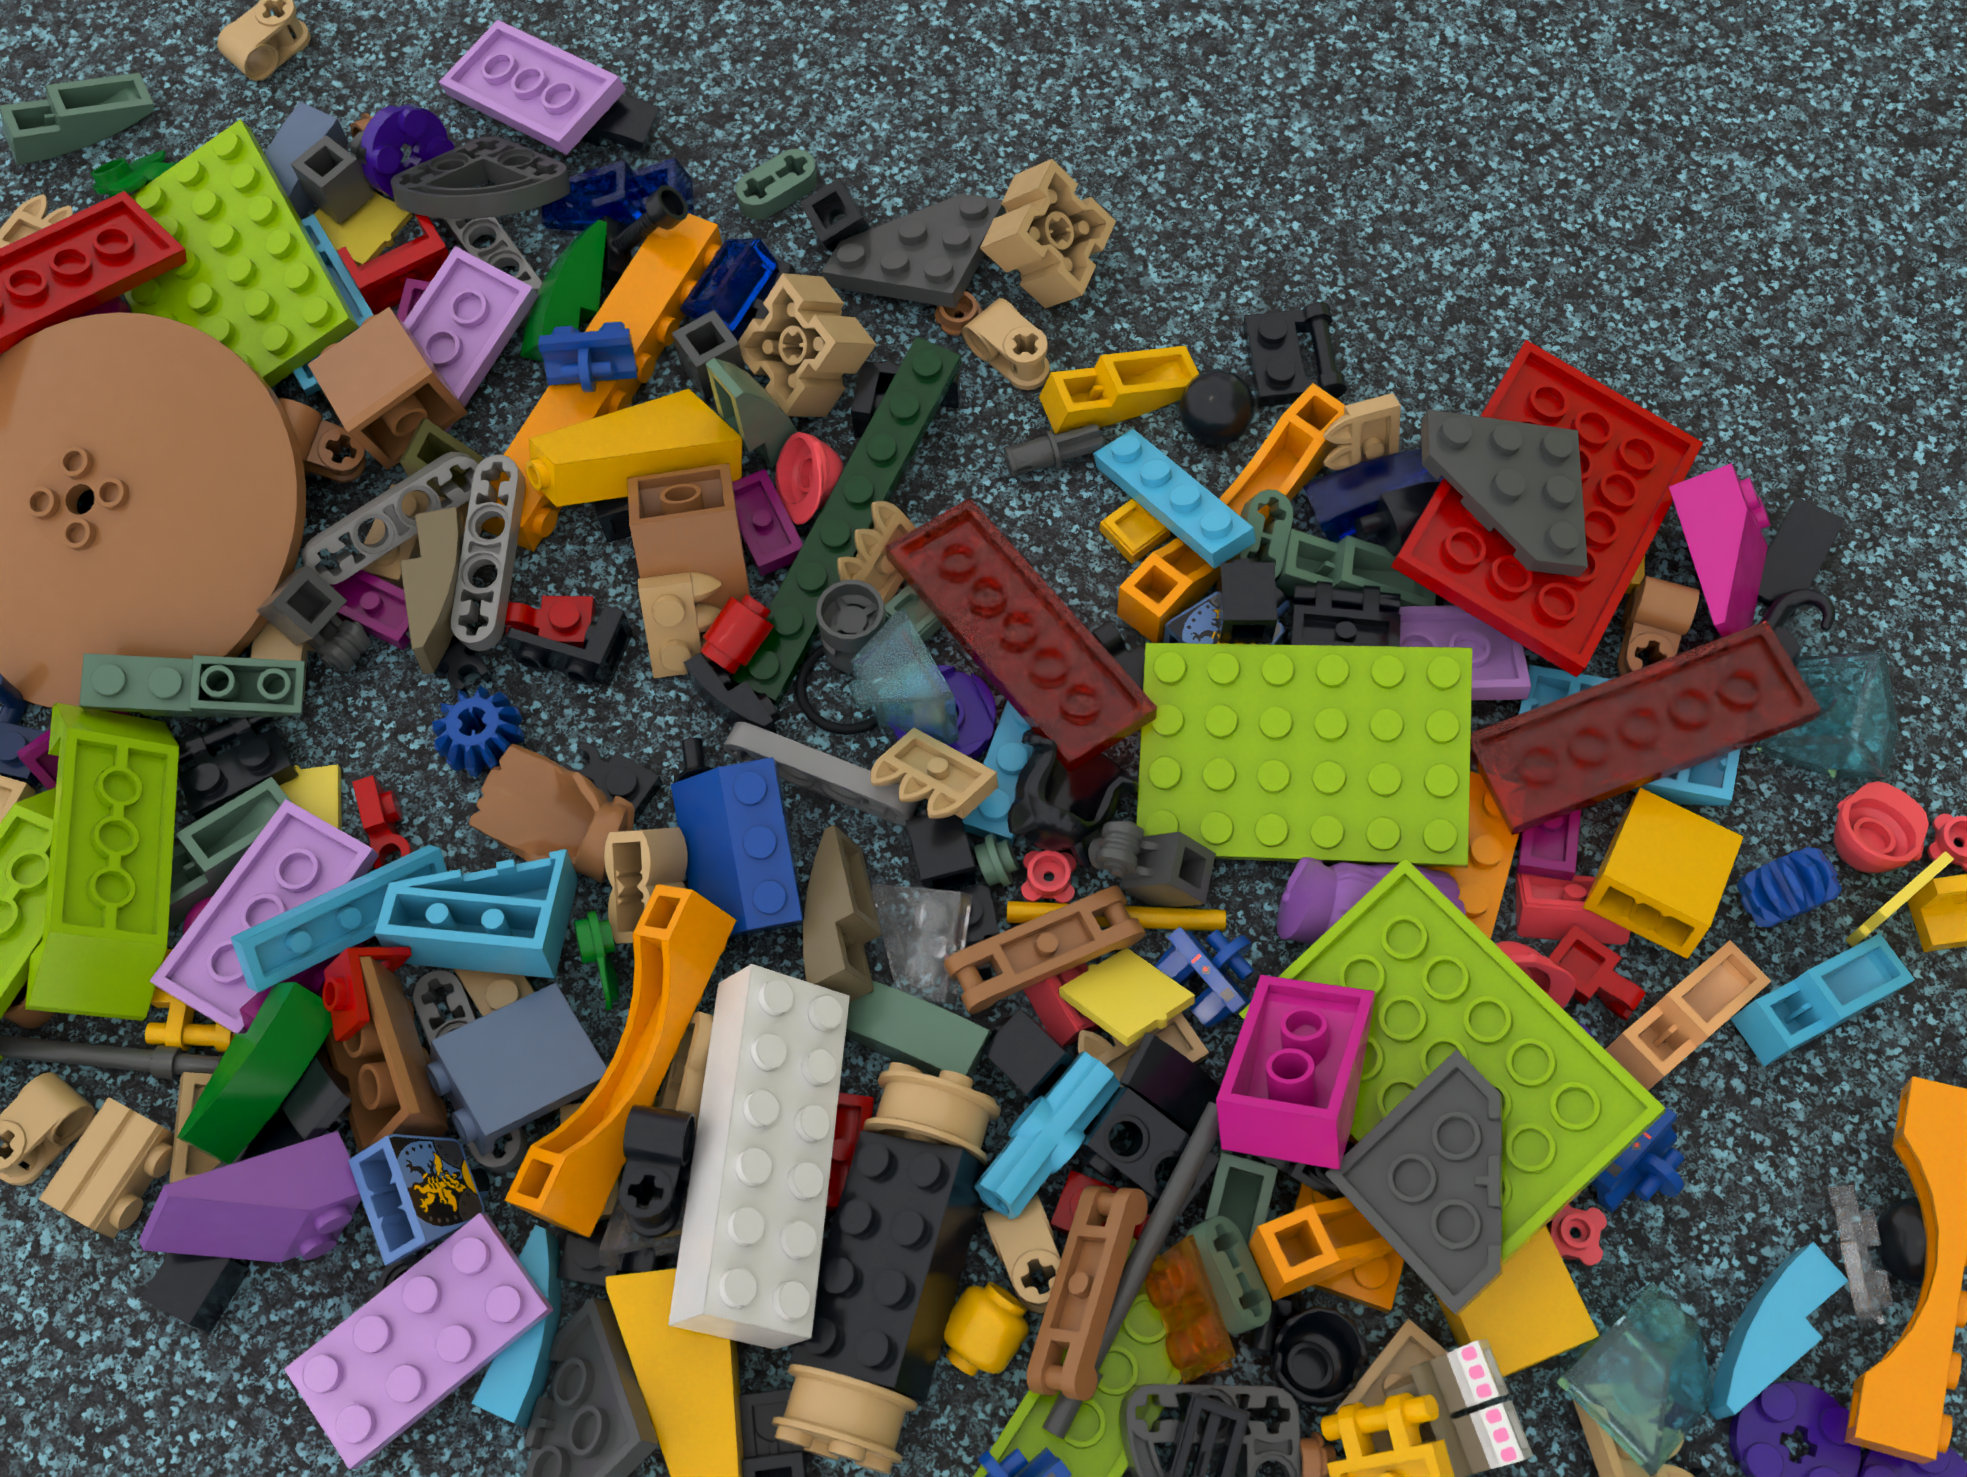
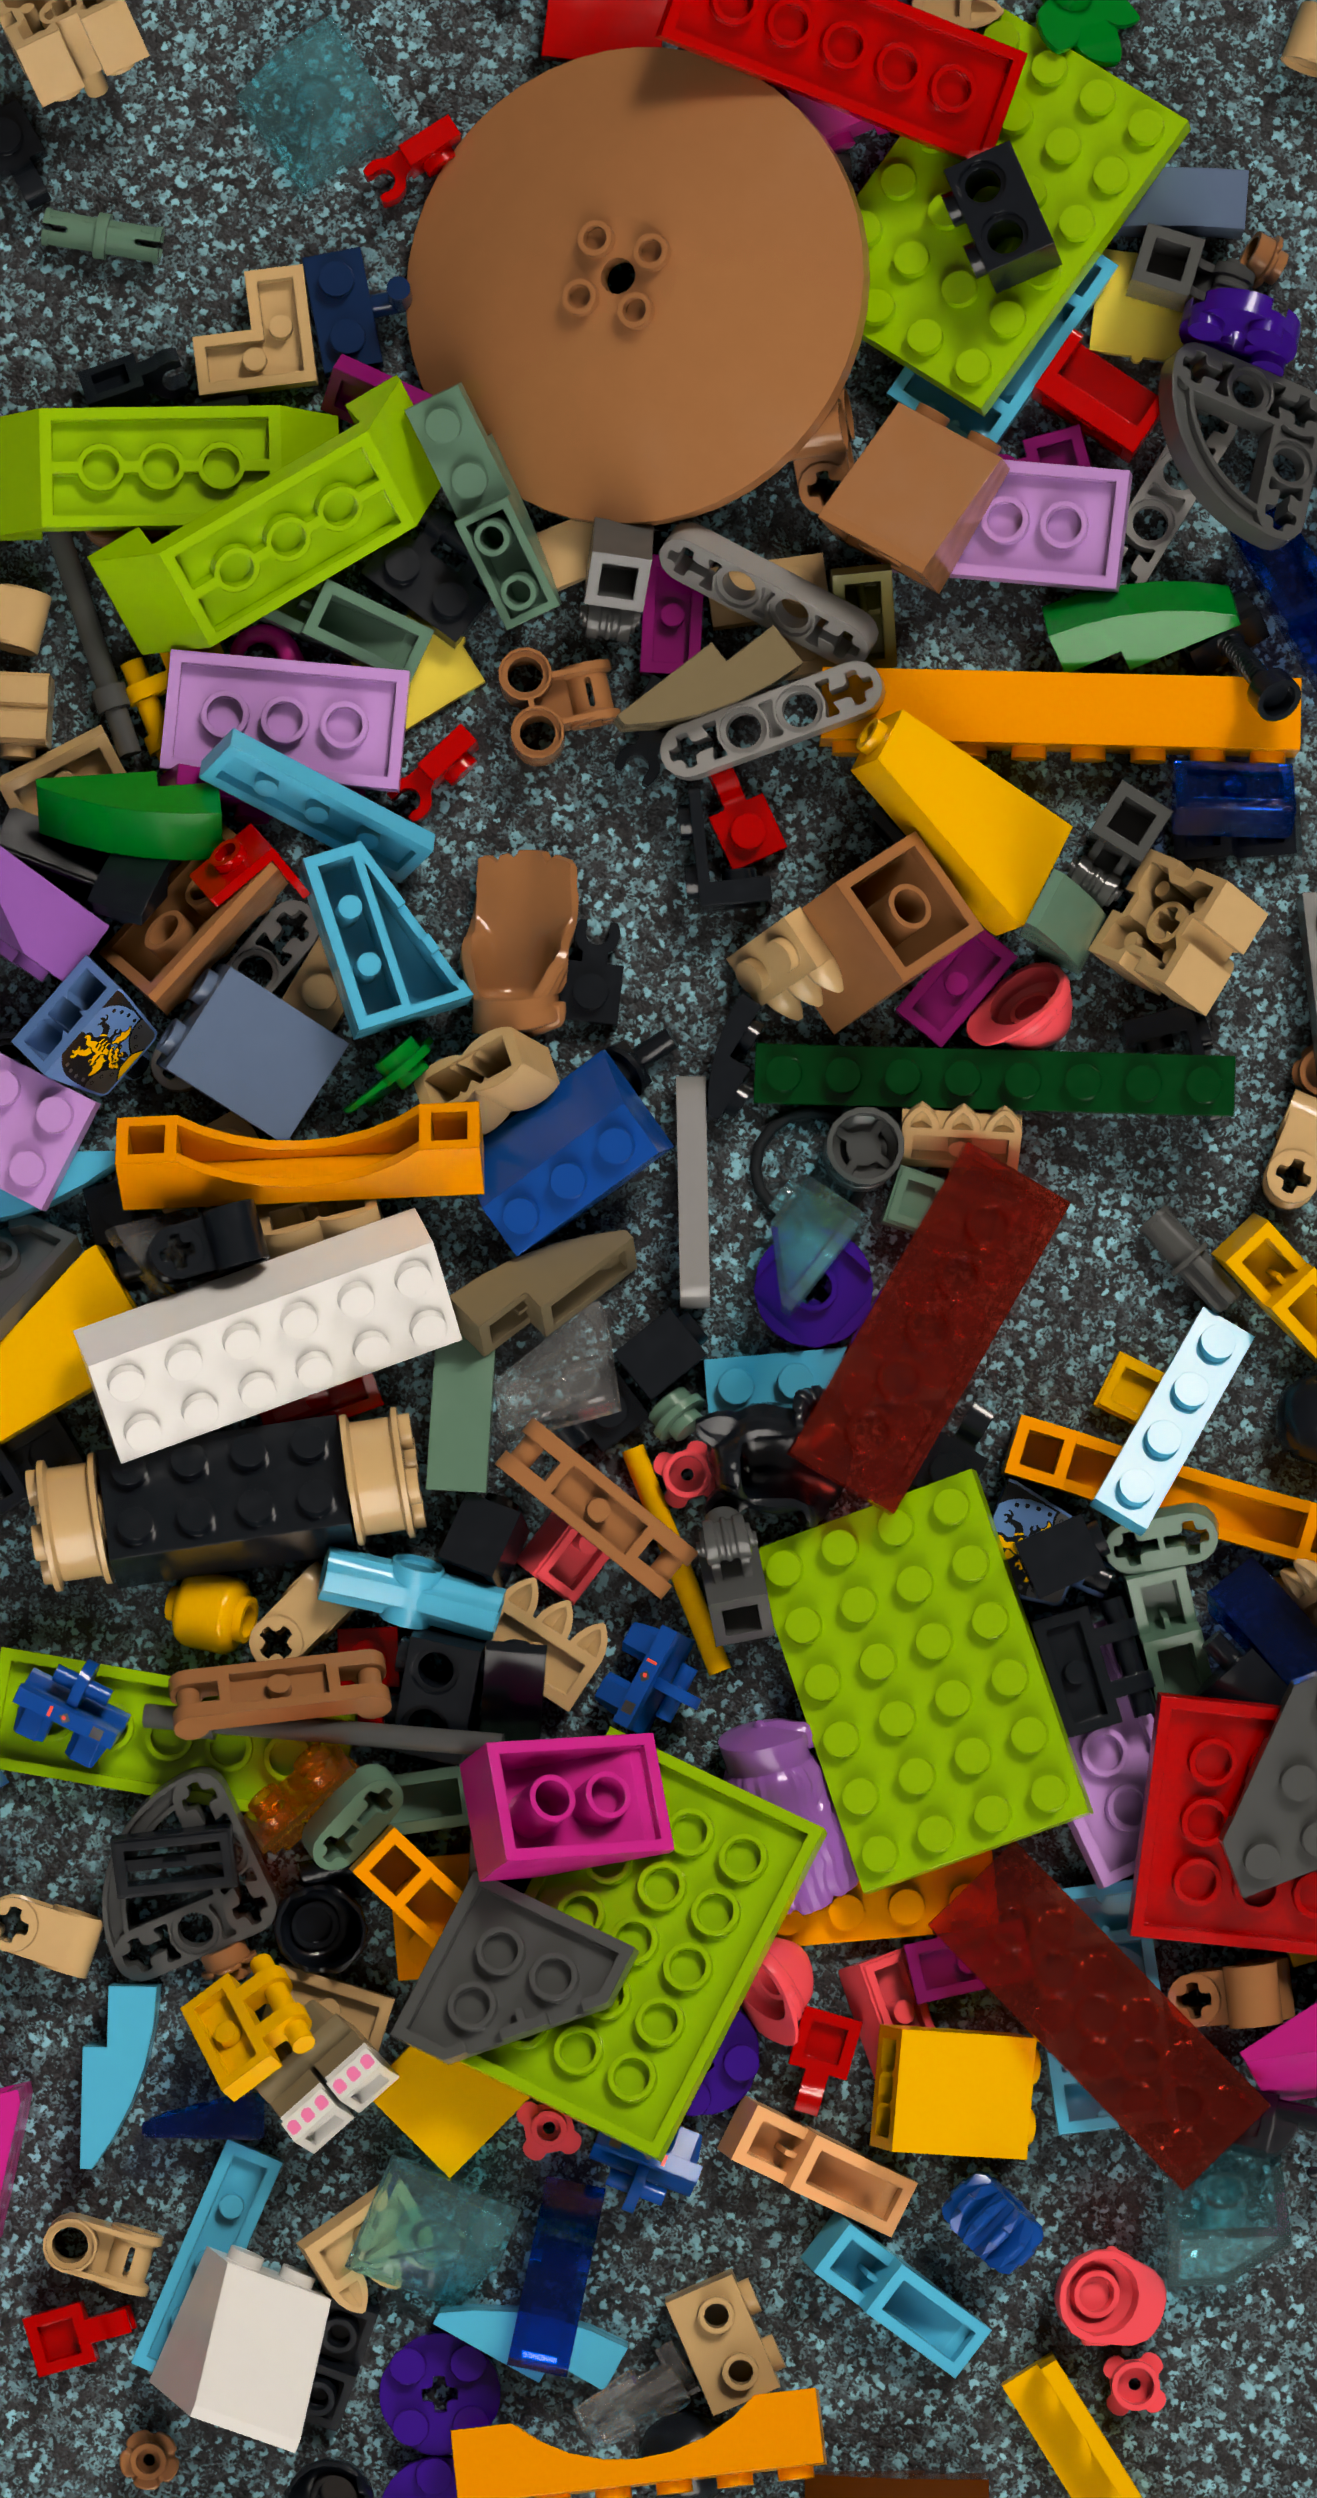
camera: 65 degrees right, 20 degrees up
(222, 244) = (1007, 215): none -> black brick
(386, 708) = (557, 701): none -> medium nougat piece
(483, 712) = (566, 797): blue gear -> none
(588, 356) = (1043, 708): blue hips -> none
(737, 633) = (798, 1033): red brick -> none
(934, 772) = (727, 1314): tan plate -> none
(1126, 996) = (585, 1608): light yellow piece -> none
(1728, 1277) = (556, 2276): none -> clear blue slope
(1806, 1157) = (724, 2340): none -> tan brick
(1899, 899) = (1026, 2335): light yellow piece -> none

